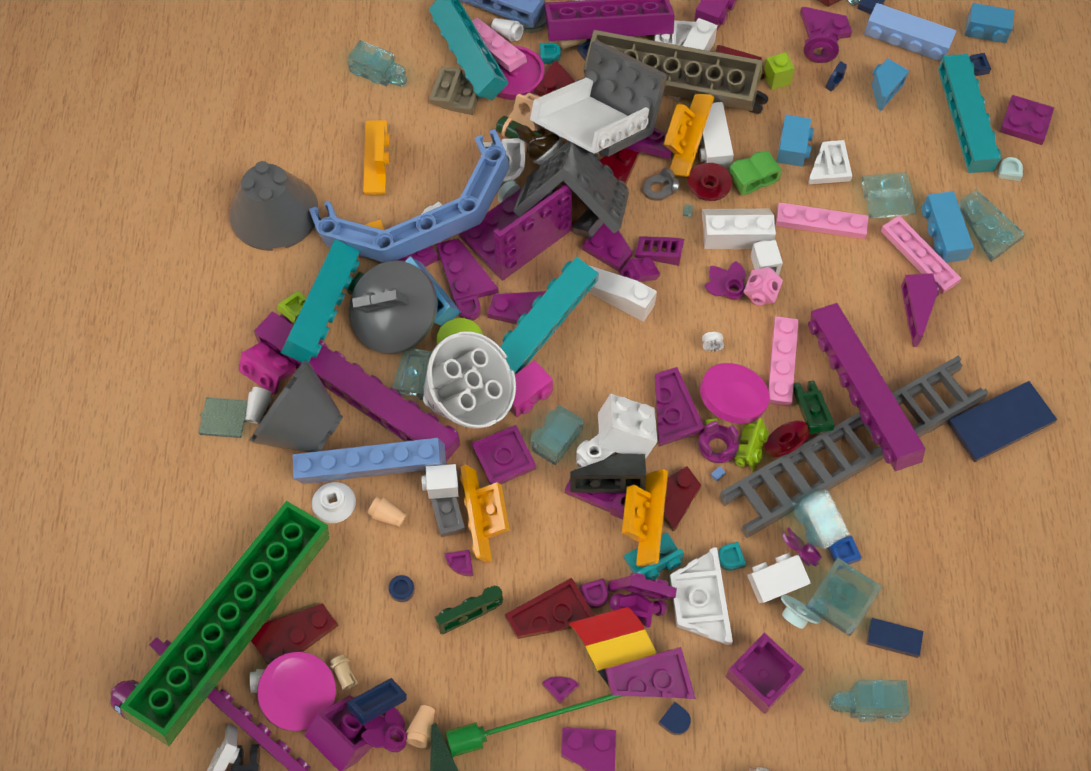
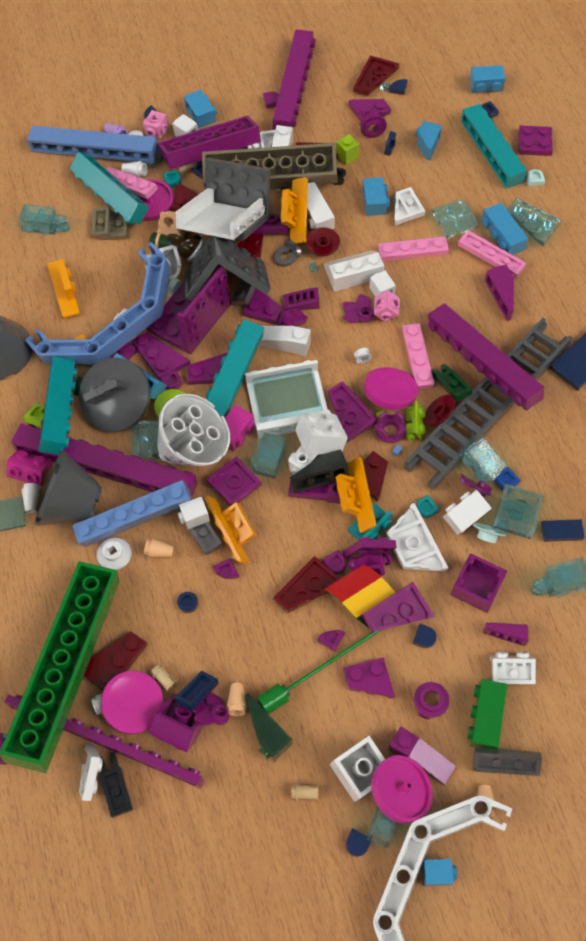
camera: 15 degrees left, 0 degrees up
(469, 609) = (245, 602): dark green hinge -> none
(600, 363) = (282, 394): none -> clear light blue panel
(755, 172) = (353, 226): bright green brick -> none
(785, 748) = (510, 632): none -> magenta slope
(909, 32) = (432, 99): light blue brick -> none

